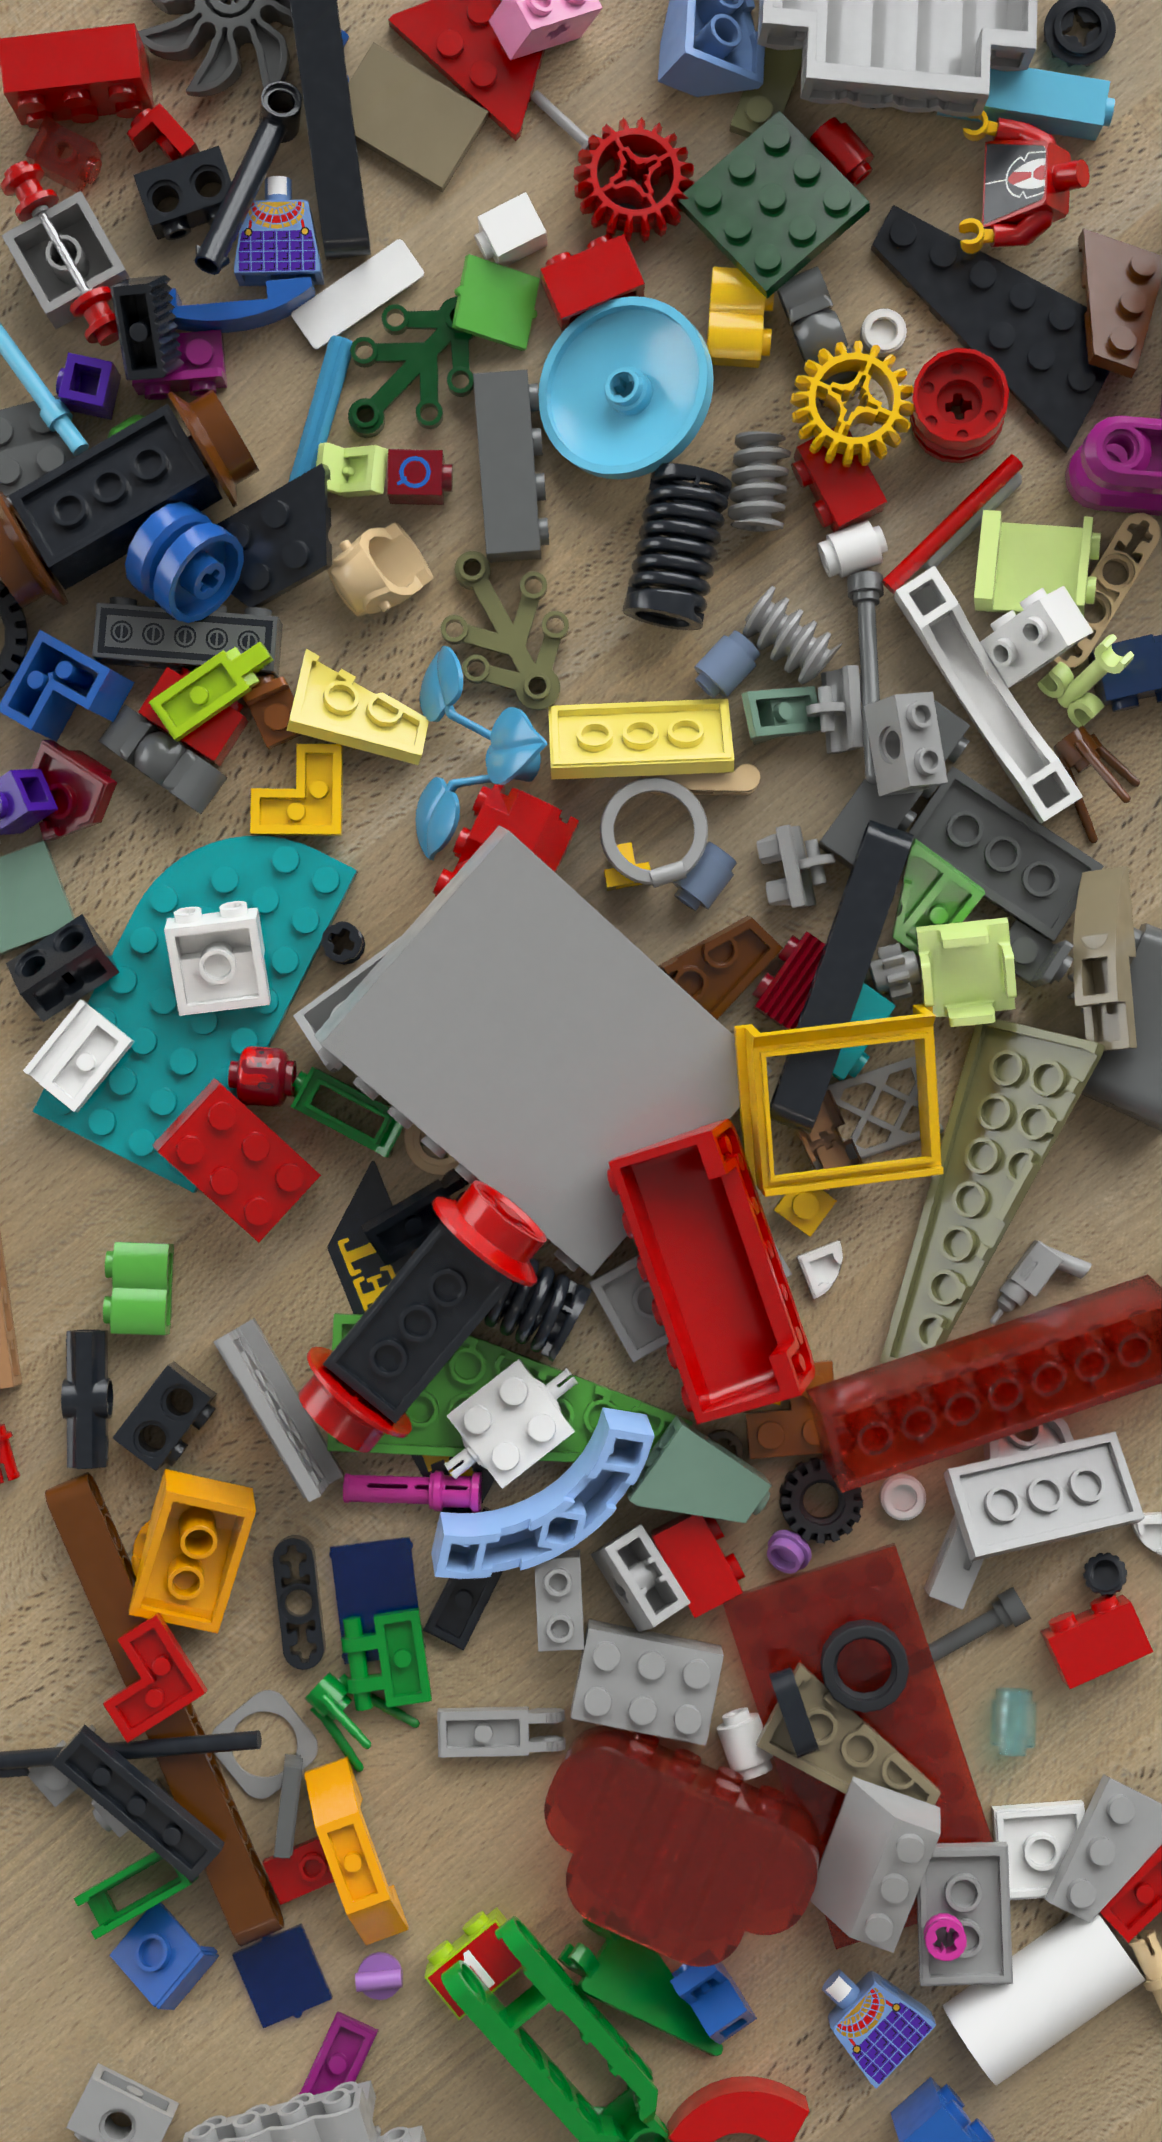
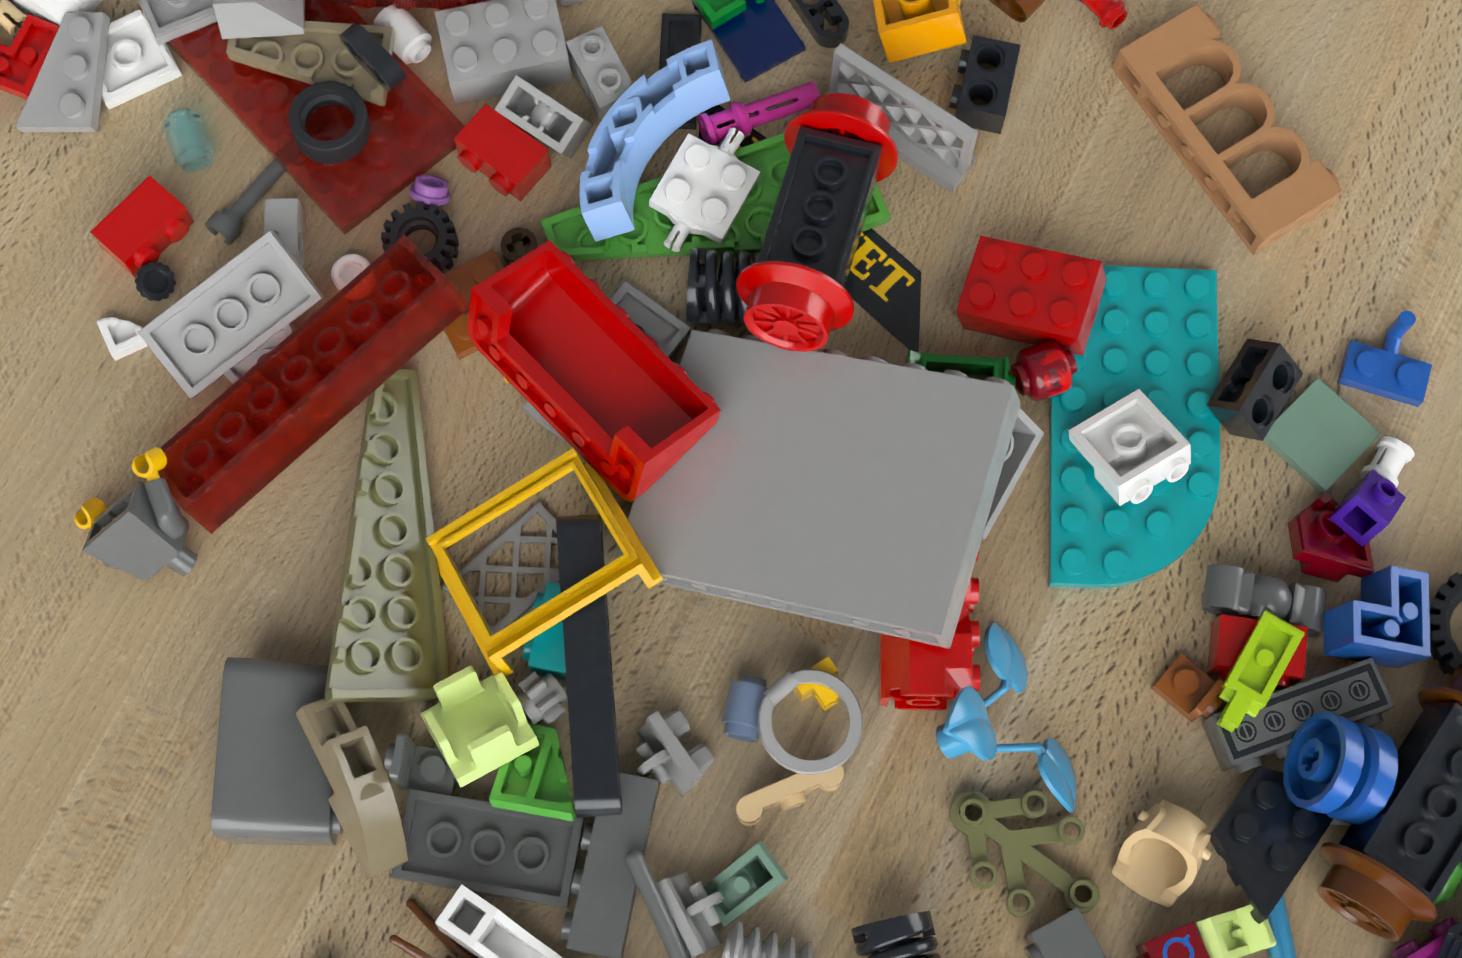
camera: 155 degrees right, 15 degrees down
(78, 1056) = (1203, 322): white plate -> none
(87, 1398) = (1055, 72): black piece -> none
(140, 1288) = (1056, 171): bright green brick -> none
(313, 806) = (1116, 621): yellow plate -> none
(339, 930) = (1040, 506): black bush -> none
(344, 713) = (1124, 712): light yellow wing -> none
(411, 1220) = (872, 302): black hinge -> none
(640, 739) = (859, 803): light yellow tile -> none
(698, 1478) = (528, 208): sand green slope -> none
(723, 964) = (697, 638): reddish brown wing -> none
(726, 665) = (813, 908): sand blue brick -> none
(785, 994) = (630, 638): dark red brick -> none
(805, 1209) = (527, 462): yellow plate -> none
(821, 1267) = (499, 428): white tile -> none
(826, 1140) = (536, 528): medium nougat piece -> none
(905, 743) = (618, 894): light grey brick -> none
(1033, 1273) = (312, 500): light grey piece -> none

